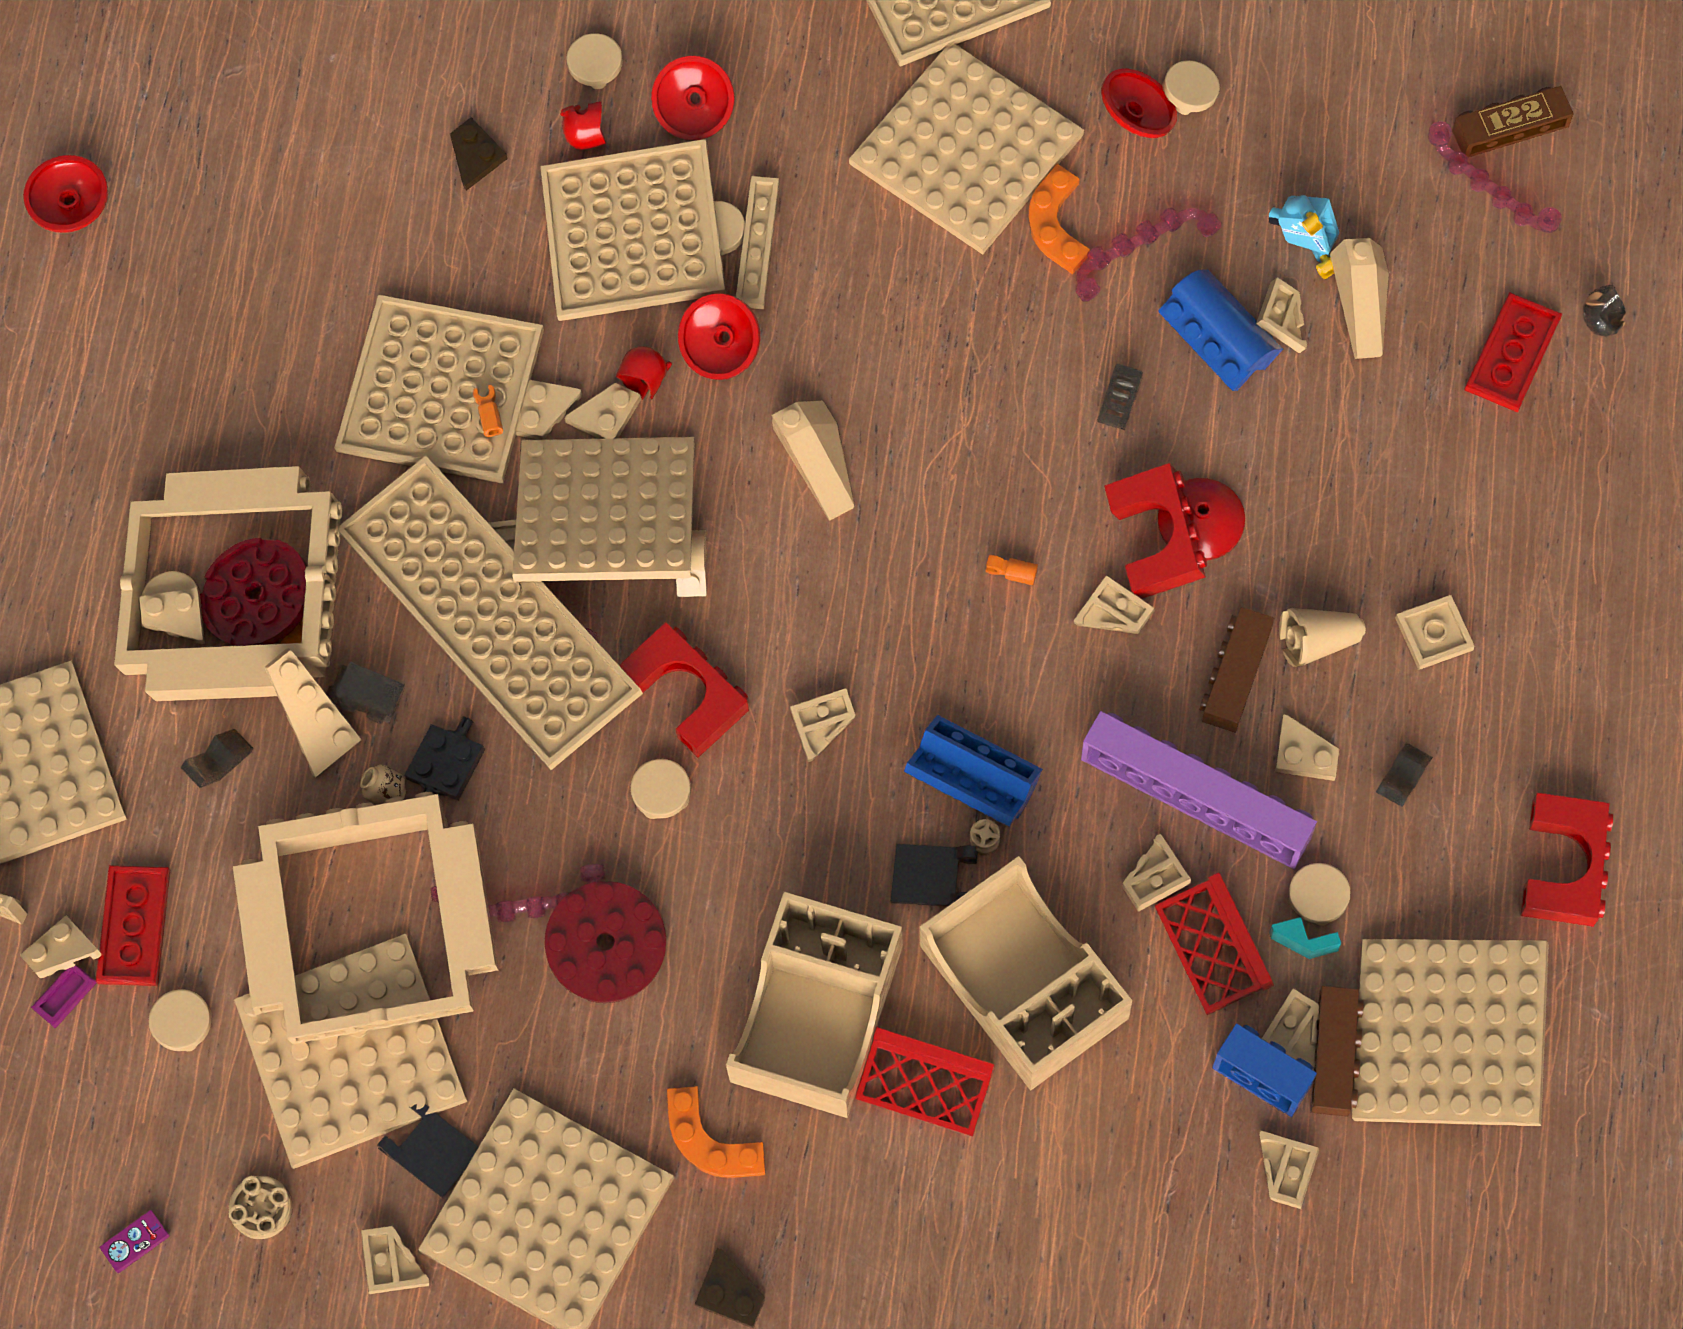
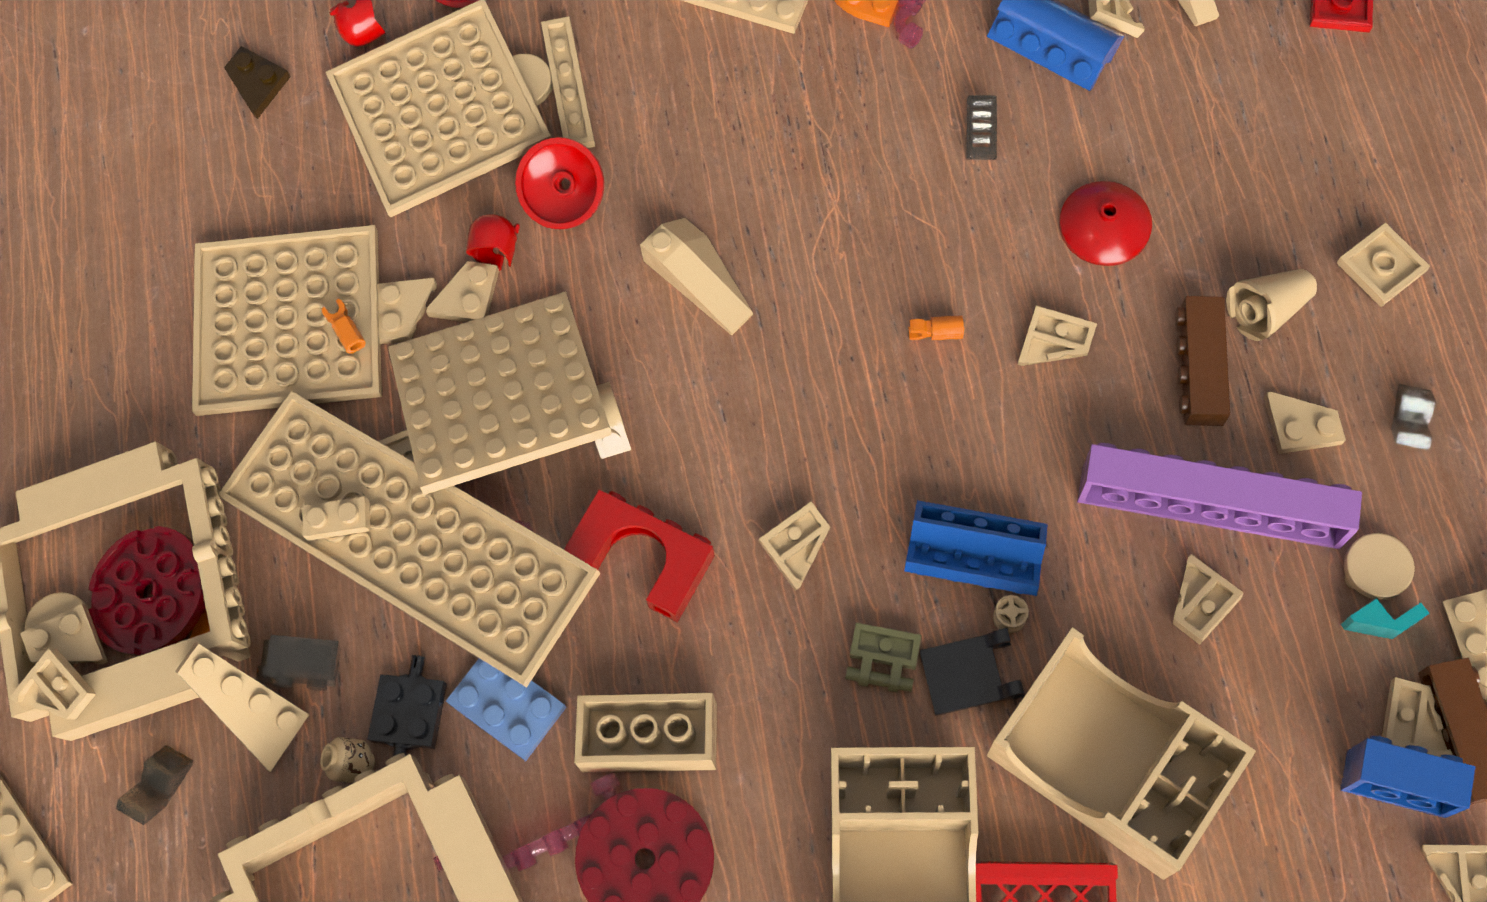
camera: 15 degrees left, 0 degrees up
(158, 650) = (54, 687): none -> tan wing
(433, 579) = (336, 518): none -> tan plate
(528, 784) = (506, 708): none -> medium blue plate
(640, 839) = (646, 732): none -> tan brick
(660, 788) = (649, 666): tan tile -> none
(866, 831) = (884, 647): none -> olive plate
(1180, 560) = (1060, 205): red arch -> none
(1238, 933) = (1314, 634): red fence -> none

